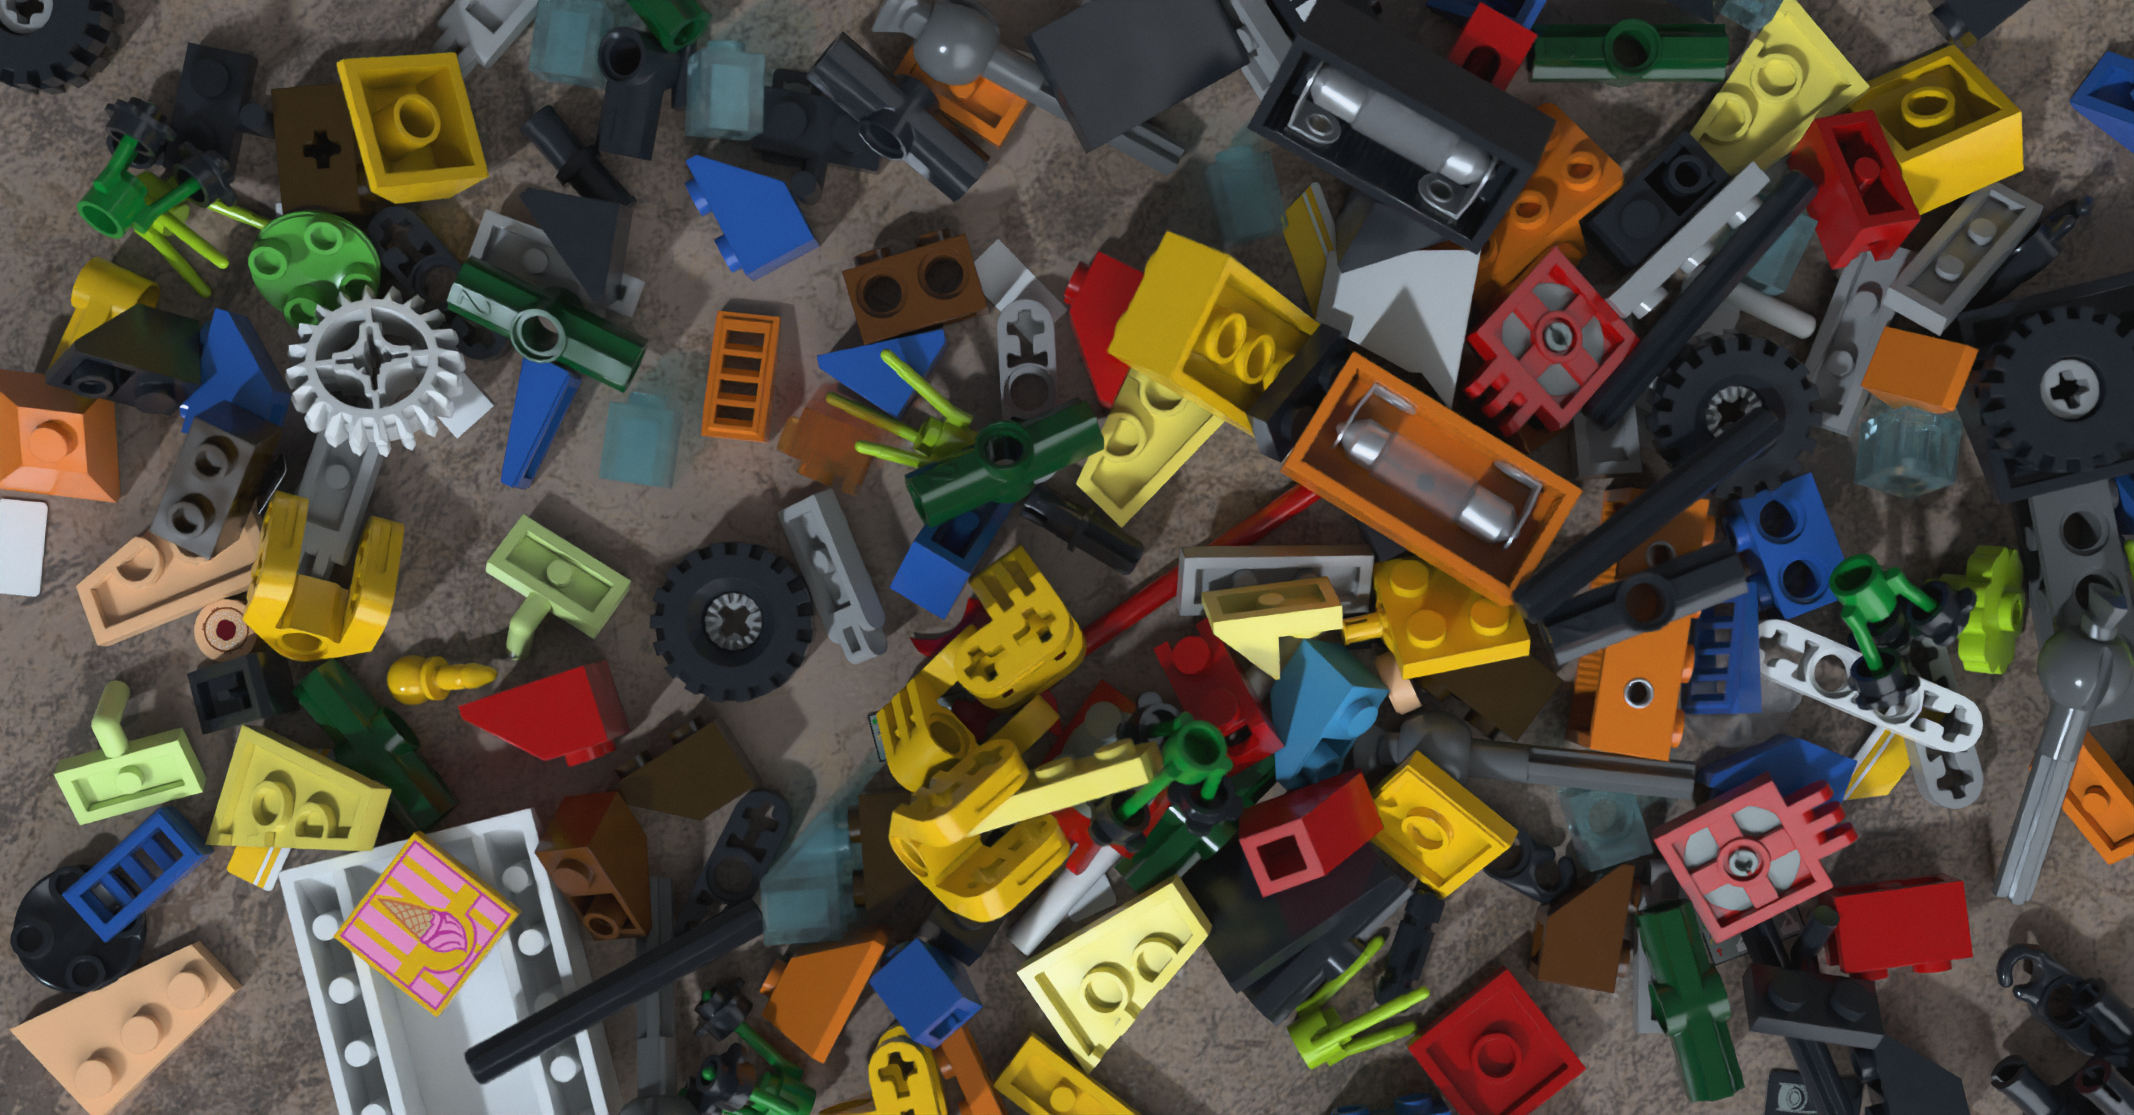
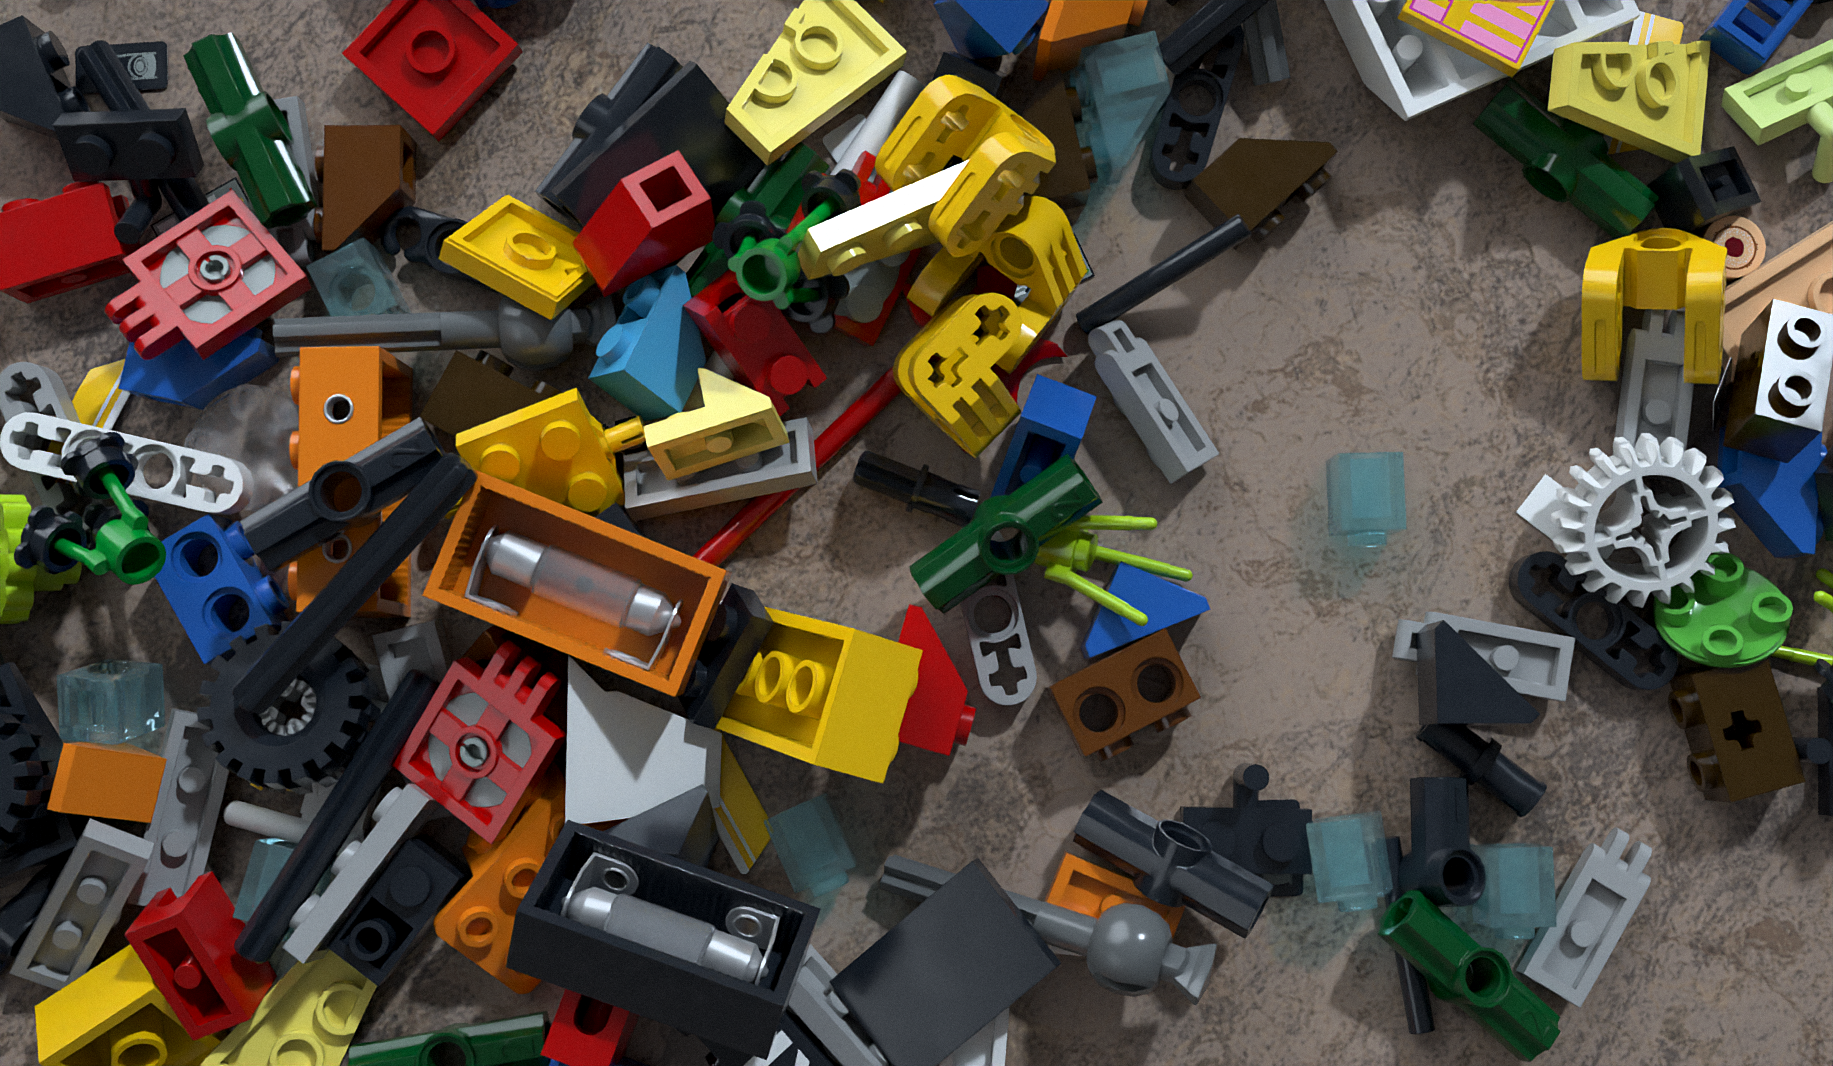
camera: 175 degrees right, 5 degrees down
(413, 125) = (1659, 768): yellow slope -> none
(418, 679) = (1535, 234): yellow bar -> none
(514, 309) = (1509, 603): dark green piece -> none
(538, 411) = (1473, 510): blue slope -> none
(553, 579) = (1425, 349): yellowish green plate -> none
(557, 715) = (1400, 213): red slope -> none
(600, 864) = (1329, 80): reddish brown slope -> none
(691, 621) = (1283, 334): black bush -> none
(733, 429) = (1301, 554): orange slope -> none
(755, 213) = (1297, 741): blue slope -> none
(800, 698) = (1164, 274): none -> black bar
(827, 449) = (1184, 522): clear orange brick -> none
(1008, 280) = (1030, 721): white sticker -> none
(1144, 445) = (871, 575): light yellow wing -> none
(1324, 1035) = (600, 45): lime plant -> none
(1401, 692) = (576, 376): light nougat tile -> none
(1410, 945) = (531, 139): black axle -> none
(1743, 668) = (241, 453): blue slope -> none

